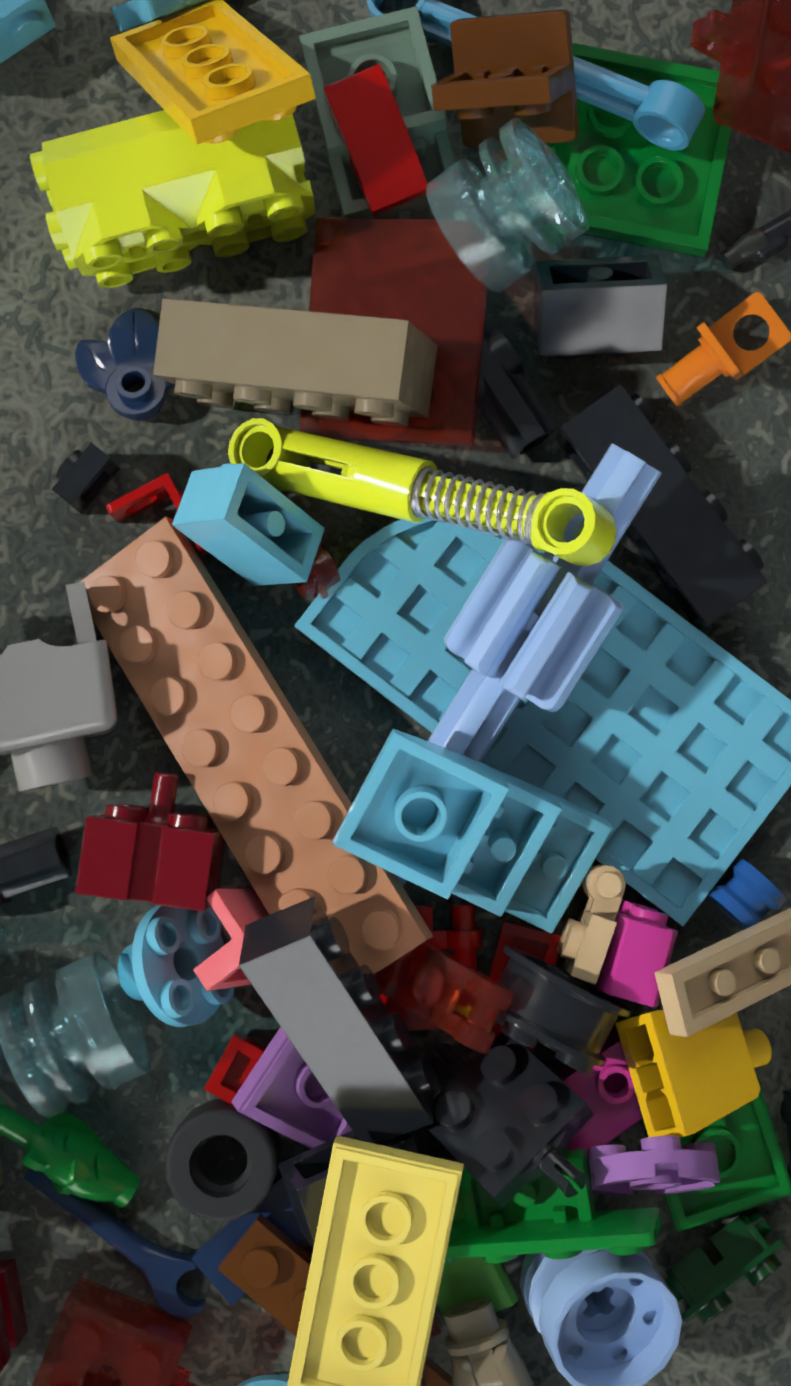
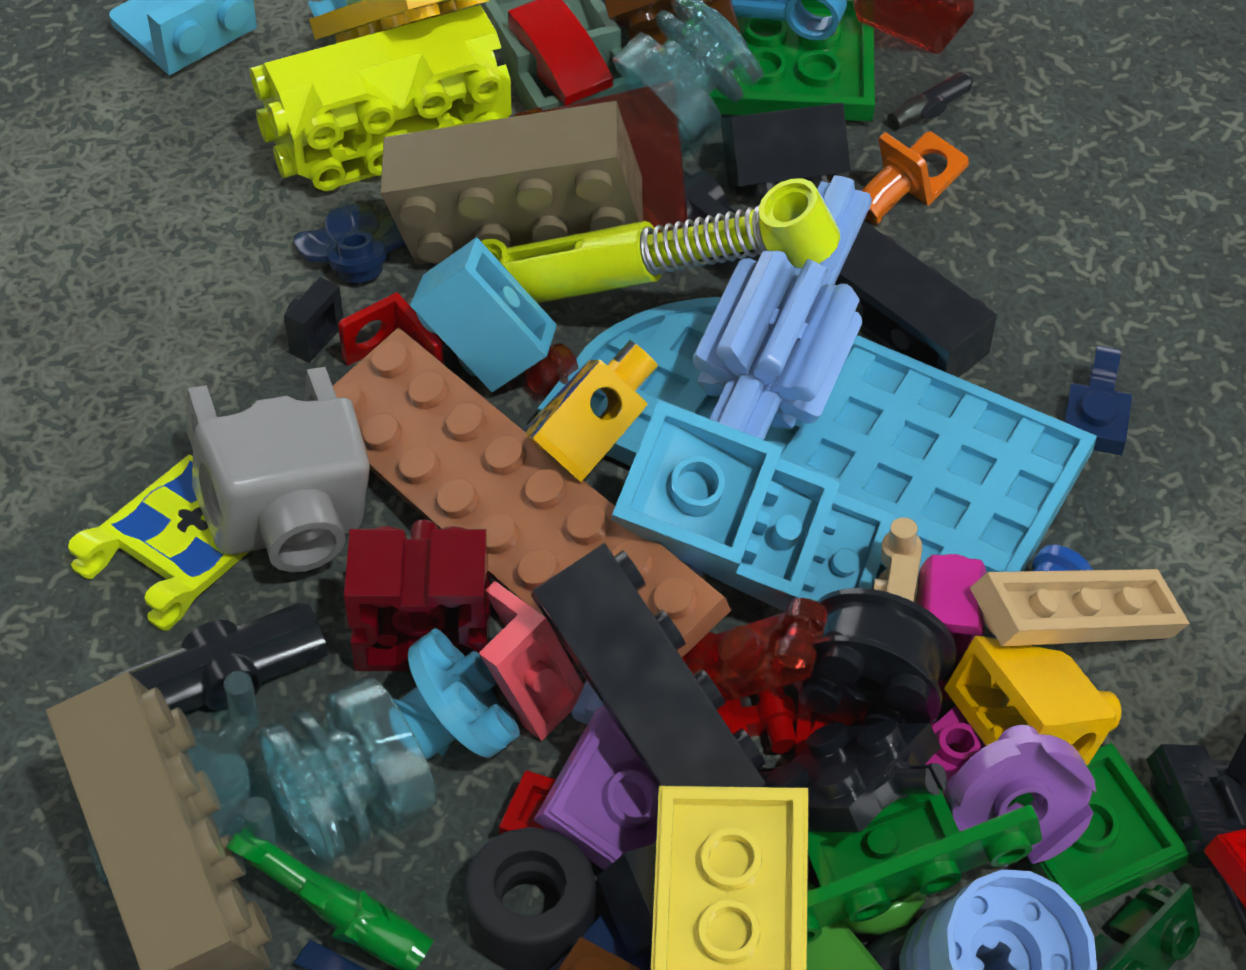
camera: 10 degrees left, 35 degrees down
(331, 686) = (571, 429): none -> yellow torso

